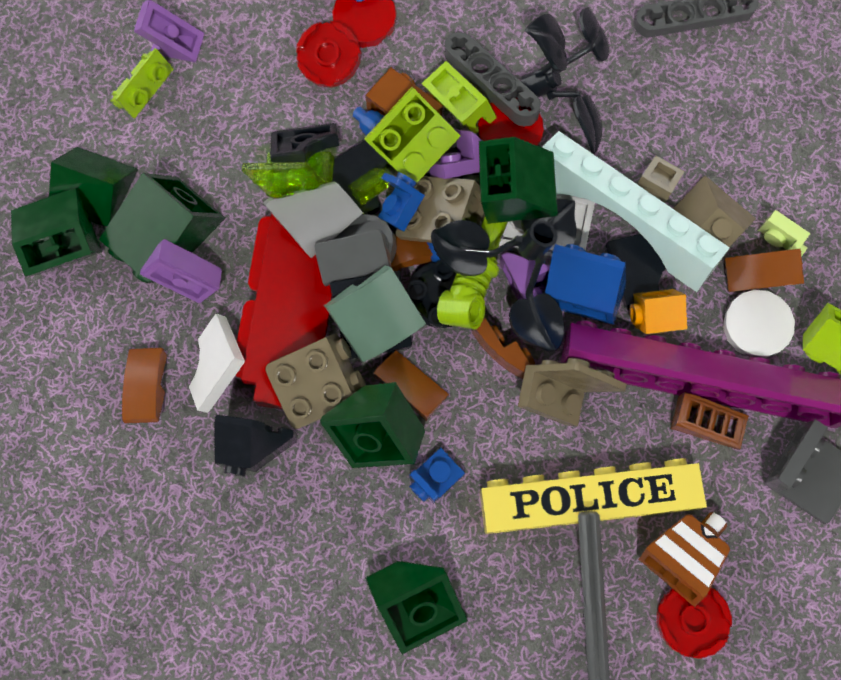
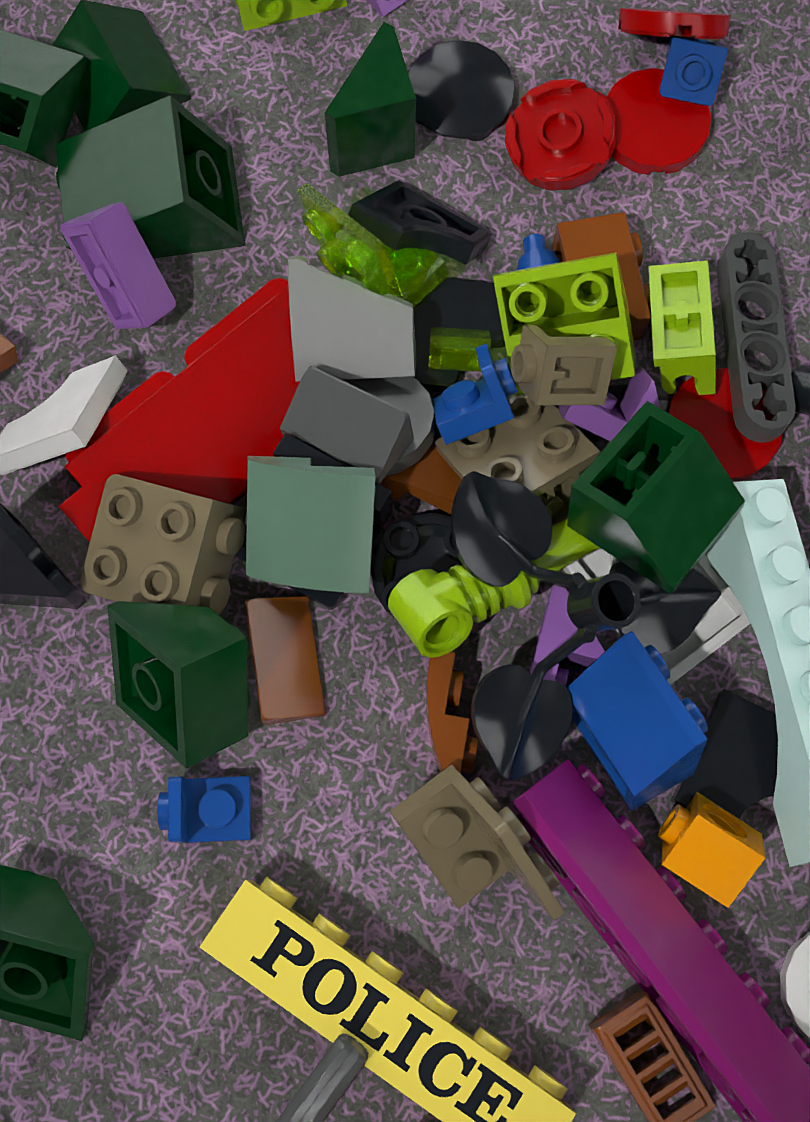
camera: 40 degrees right, 0 degrees up
(240, 106) = (373, 111): none -> dark green slope
(263, 68) = (461, 89): none -> black dish
(430, 156) = (562, 368): none -> dark tan bracket

